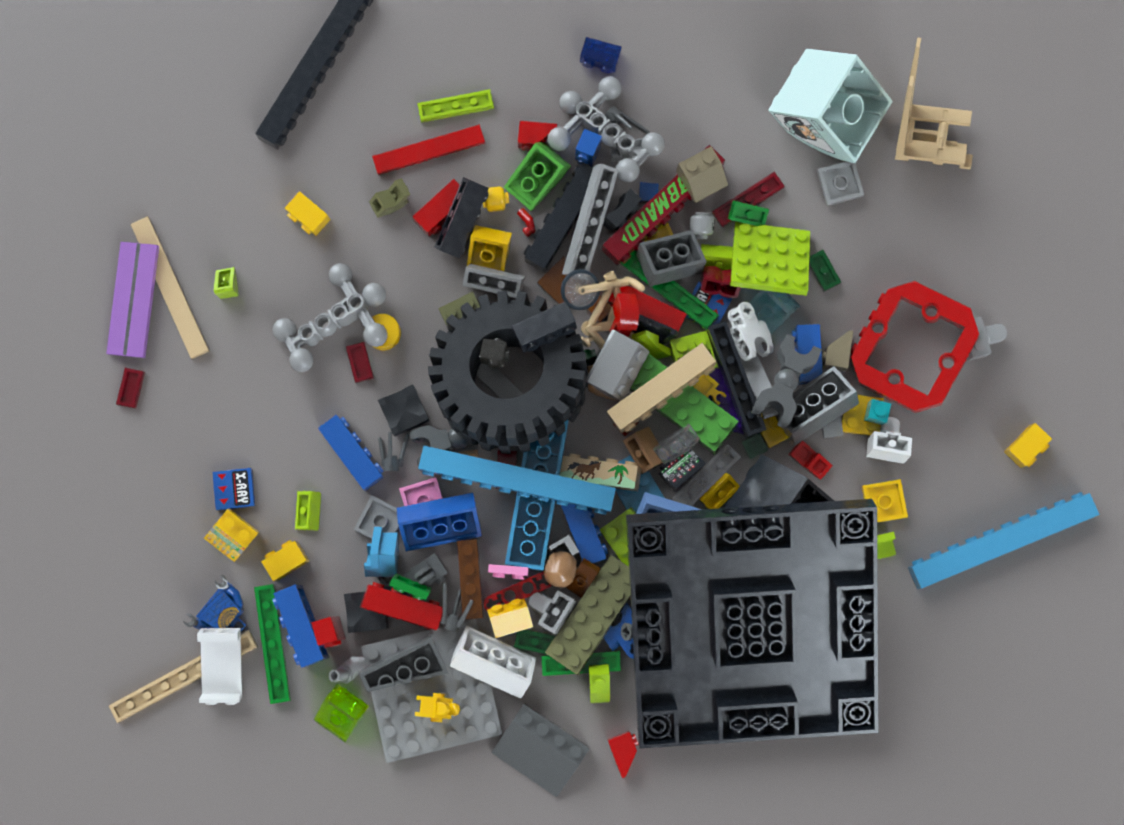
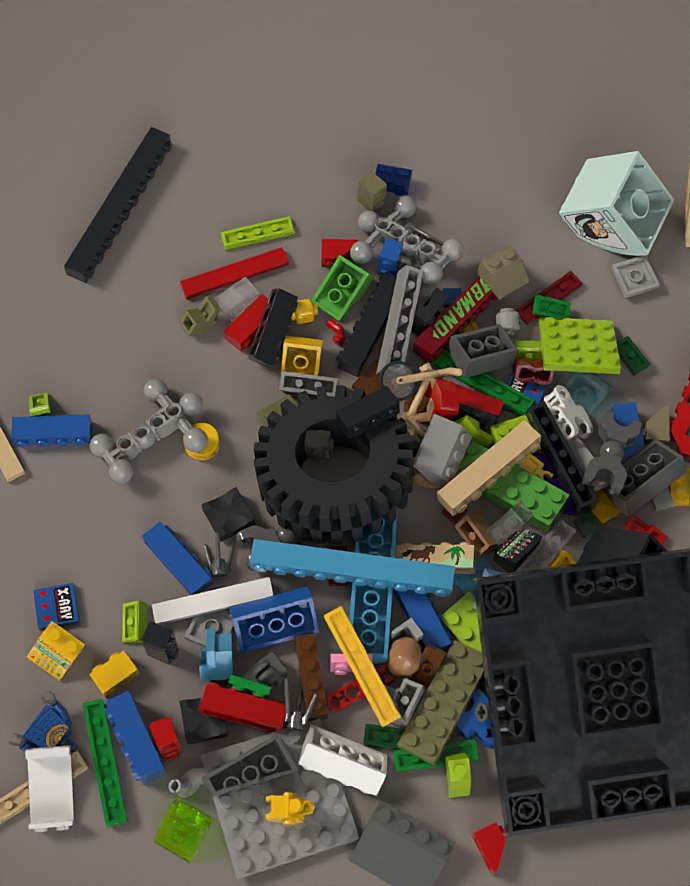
camera: 10 degrees left, 15 degrees down
(236, 309) = (51, 430): none -> blue brick
(307, 214) = (118, 337): yellow brick -> none
(328, 539) = (160, 643): none -> black brick
(359, 362) = (180, 473): dark red tile -> none
(382, 497) = (211, 601): none -> white tile
(429, 180) = (237, 298): none -> clear brick
(509, 617) = (353, 713): yellow brick -> none
(516, 579) = (362, 666): none -> yellow tile
(576, 71) = (372, 192): none -> olive brick

